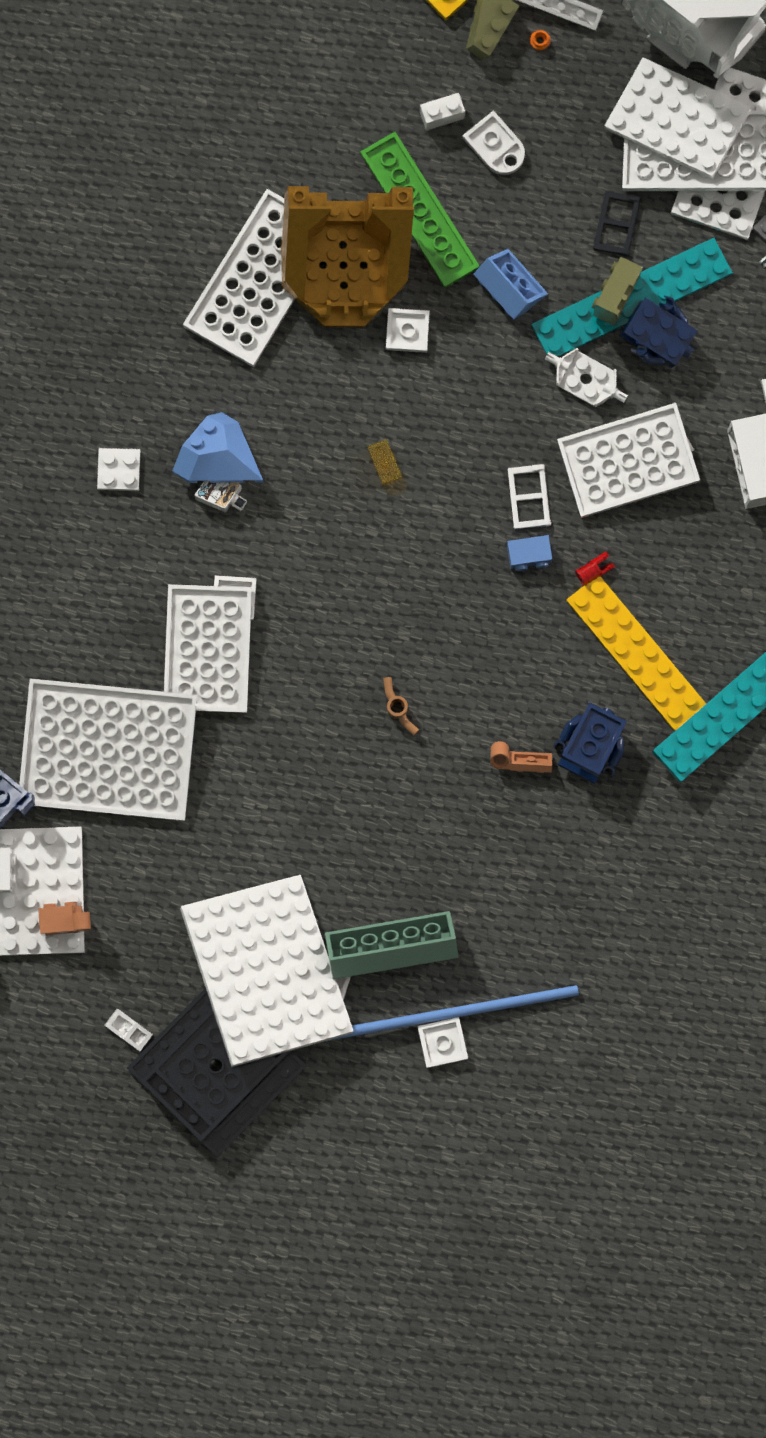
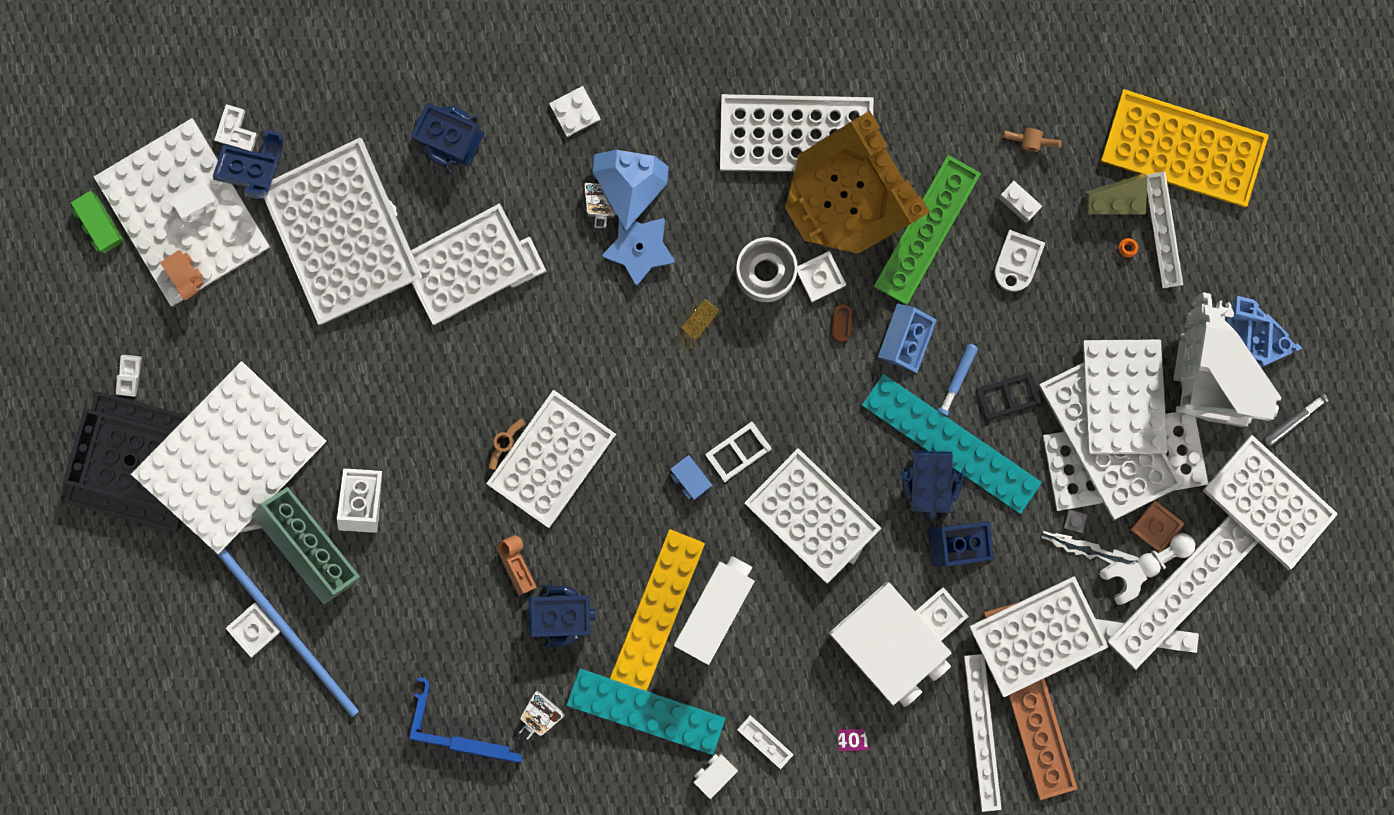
camera: 60 degrees right, 5 degrees up
(73, 597) = (447, 134): none -> dark blue torso
(295, 490) = (640, 261): none -> medium blue plate
(374, 352) = (771, 250): none -> white piece
(376, 873) = (359, 500): none -> white slope
(390, 68) = (1032, 139): none -> medium nougat piece
(438, 672) = (551, 459): none -> white plate
(462, 335) = (842, 323): none -> reddish brown tile
(570, 253) = (959, 376): none -> medium blue piece
(576, 364) = (865, 427): white plate -> none
(591, 570) = (704, 535): red hinge -> none
(616, 291) = (948, 427): olive wedge -> none
(659, 906) = (456, 743): none -> blue hinge
(668, 592) = (715, 610): none -> white brick
(675, 816) = (539, 716): none -> torso
(730, 341) = (961, 543): none -> dark blue slope

